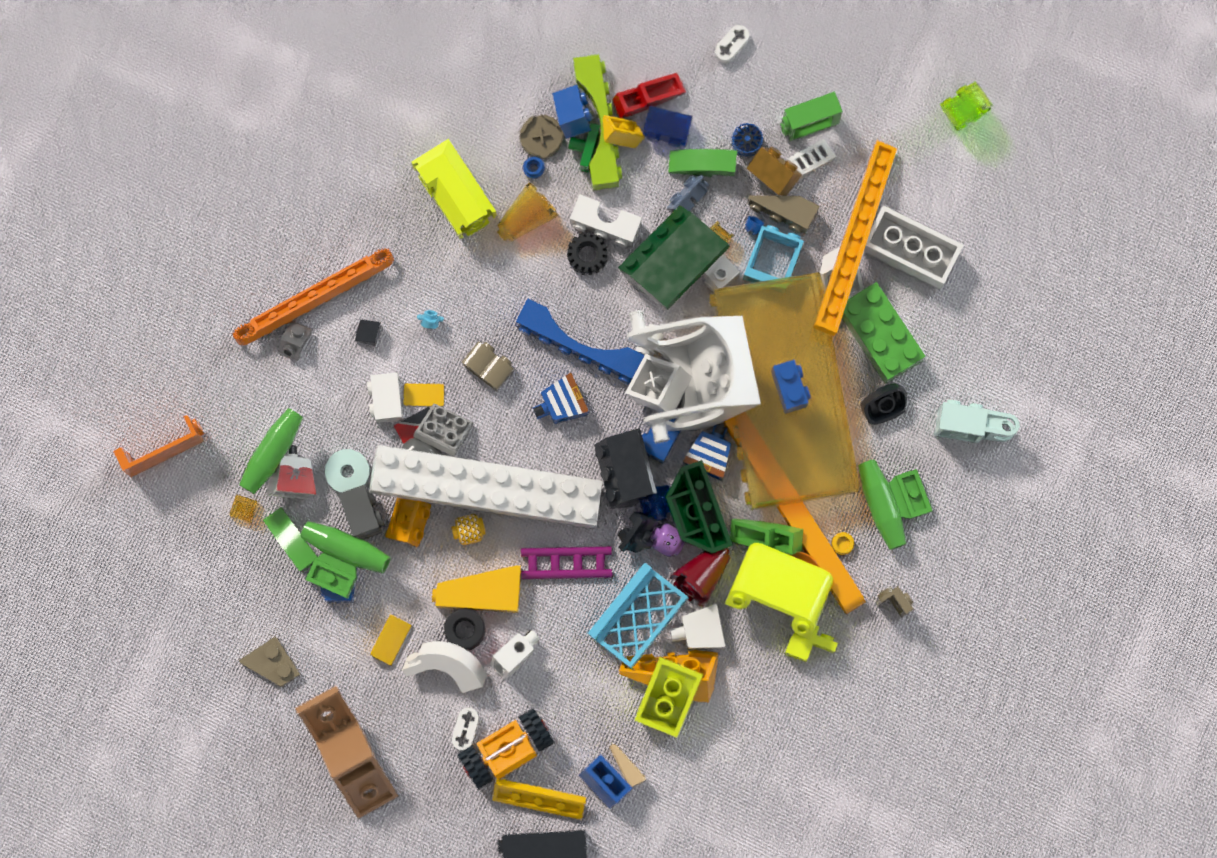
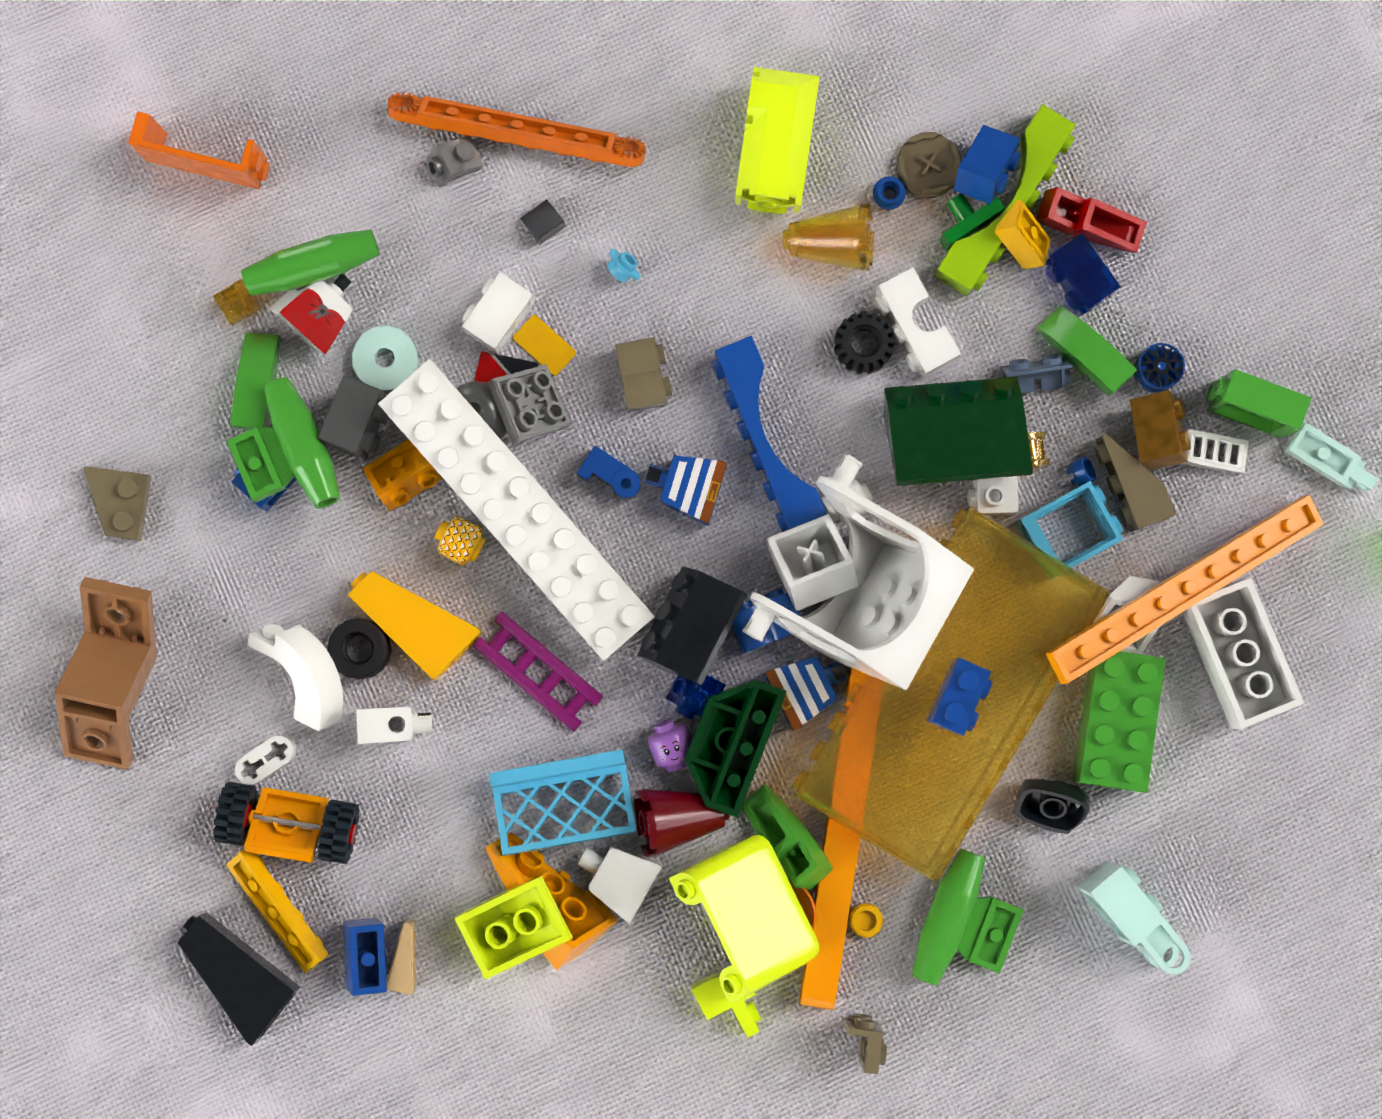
camera: 40 degrees right, 5 degrees up
(390, 640) = (269, 588): yellow slope -> none
(517, 428) = (612, 472): none -> blue leg
(639, 534) = (642, 713): black hips -> none
(735, 47) = (1236, 235): white beam -> none
(871, 113) = (1330, 458): none -> light aqua hinge

